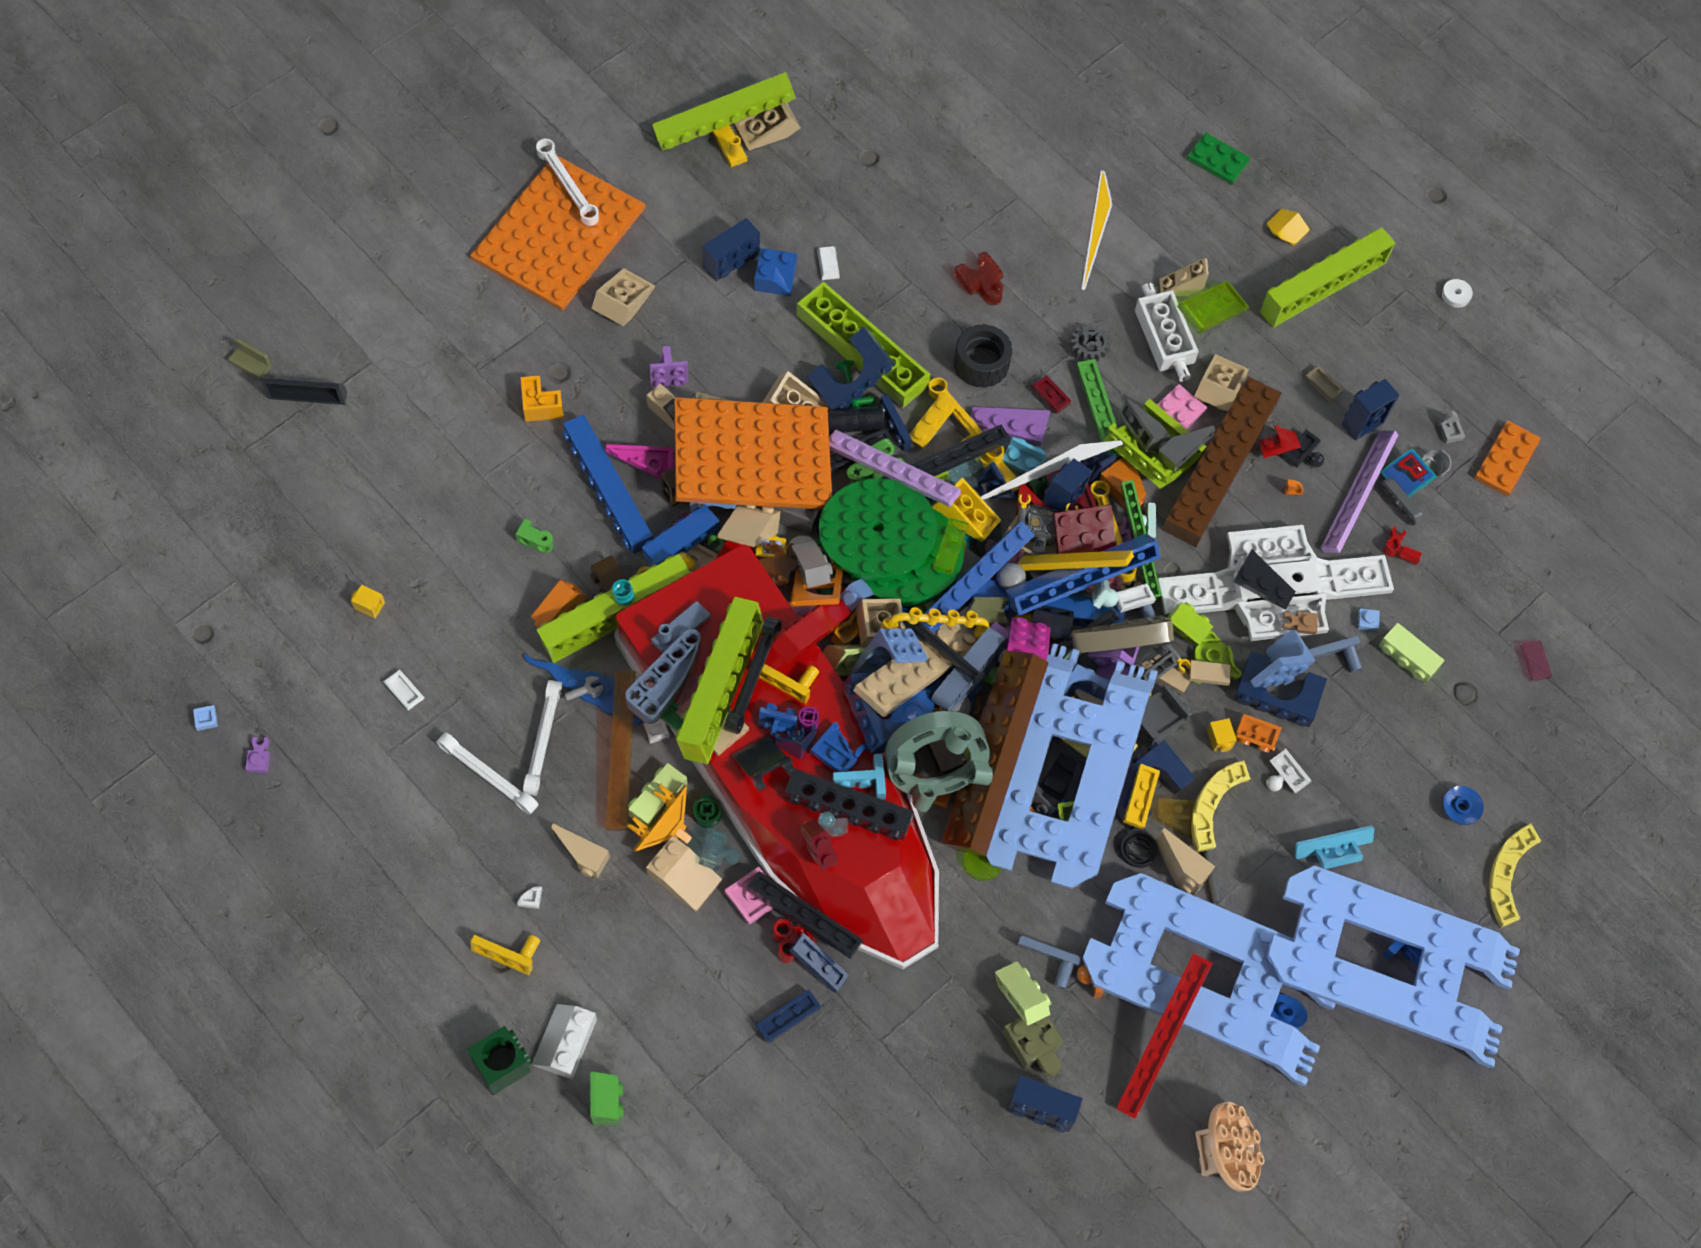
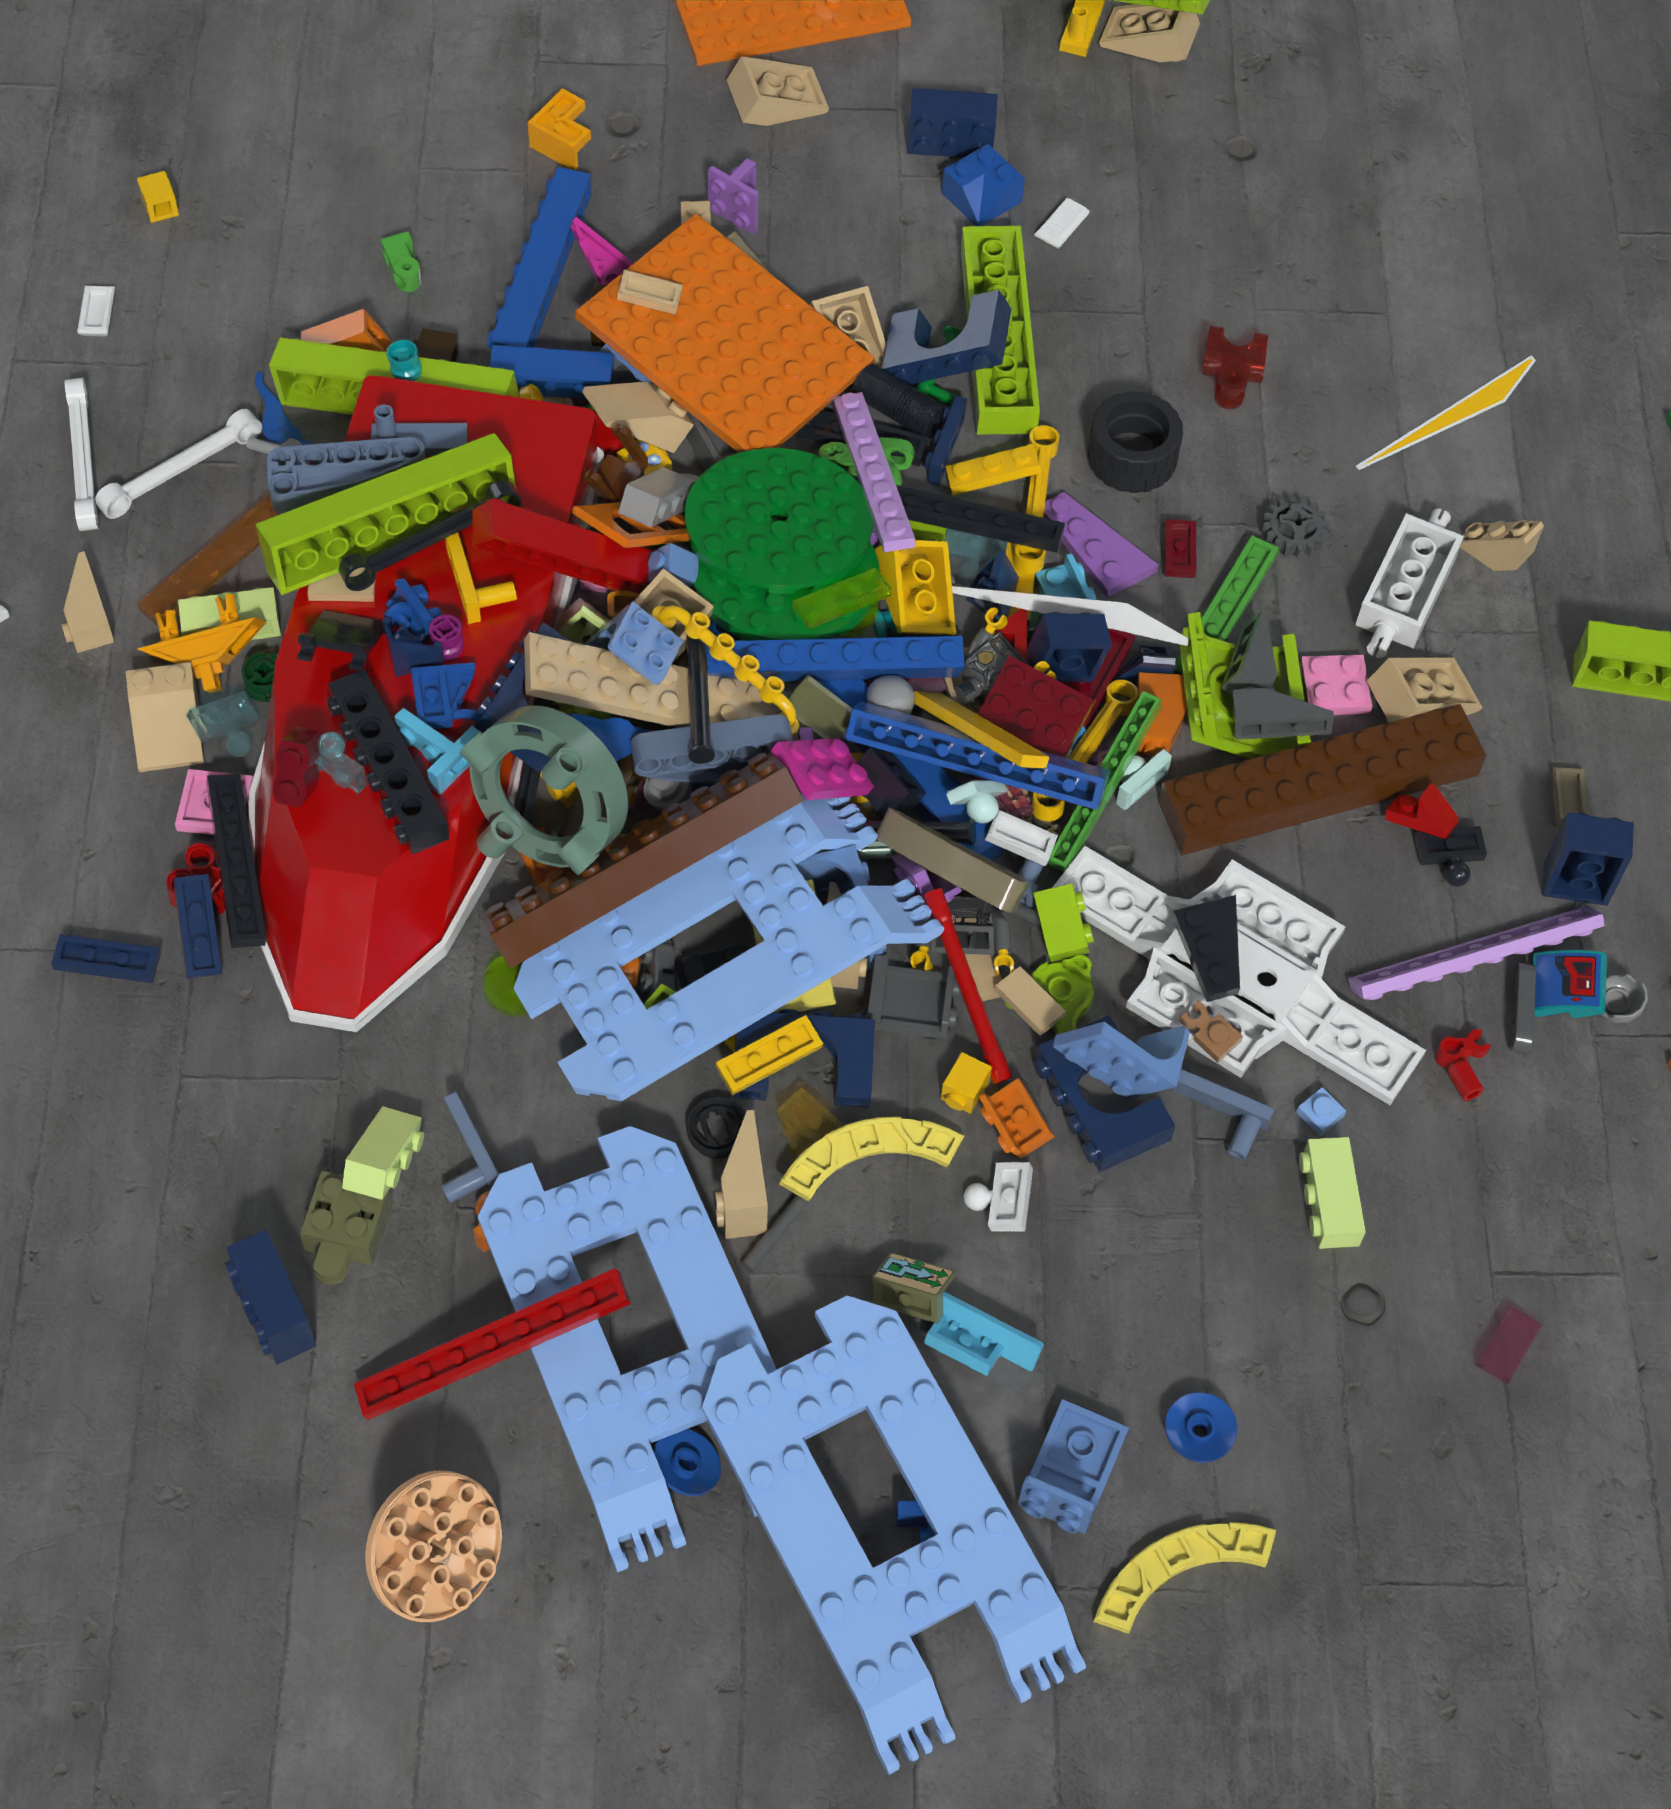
camera: 45 degrees right, 5 degrees down
(702, 458) = (649, 292): none -> tan tile
(1213, 307) = (1504, 597): clear neon green tile -> none
(1219, 711) = (992, 1052): none -> red piece
(1293, 488) = (1388, 882): orange tile -> none
(1296, 848) = (911, 1287): none -> panel
(1433, 869) = (1072, 1467): none -> medium blue bracket

